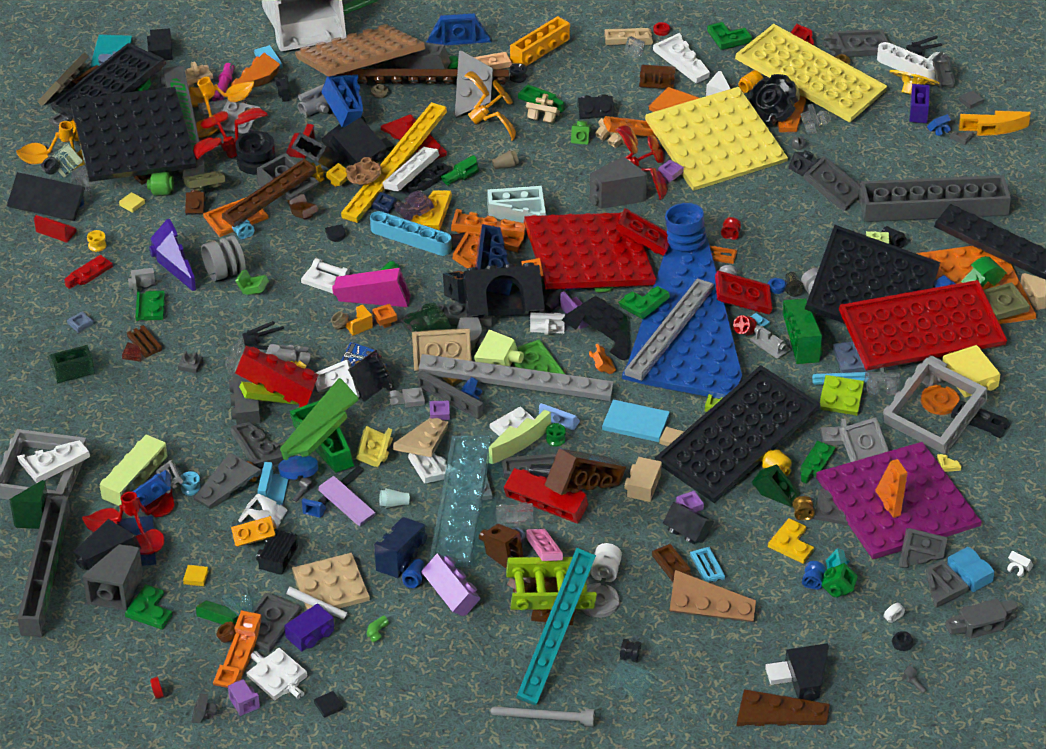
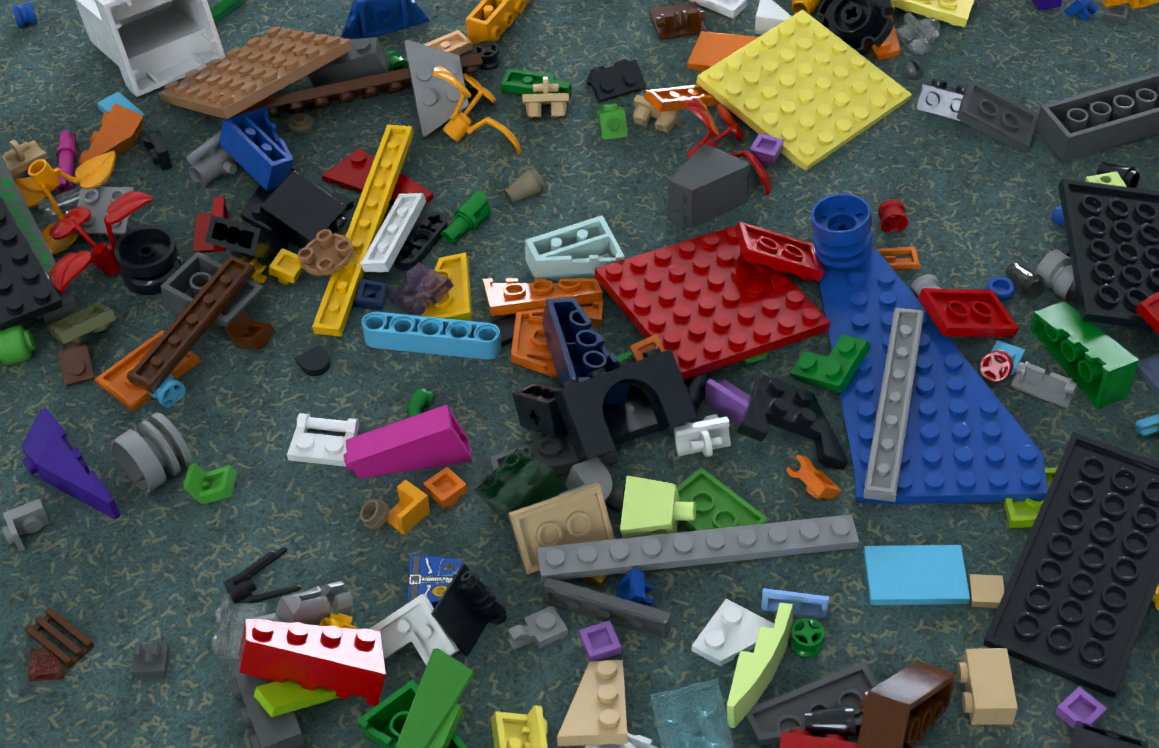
camera: 15 degrees left, 5 degrees up
(150, 305) = (51, 566): green plate -> none

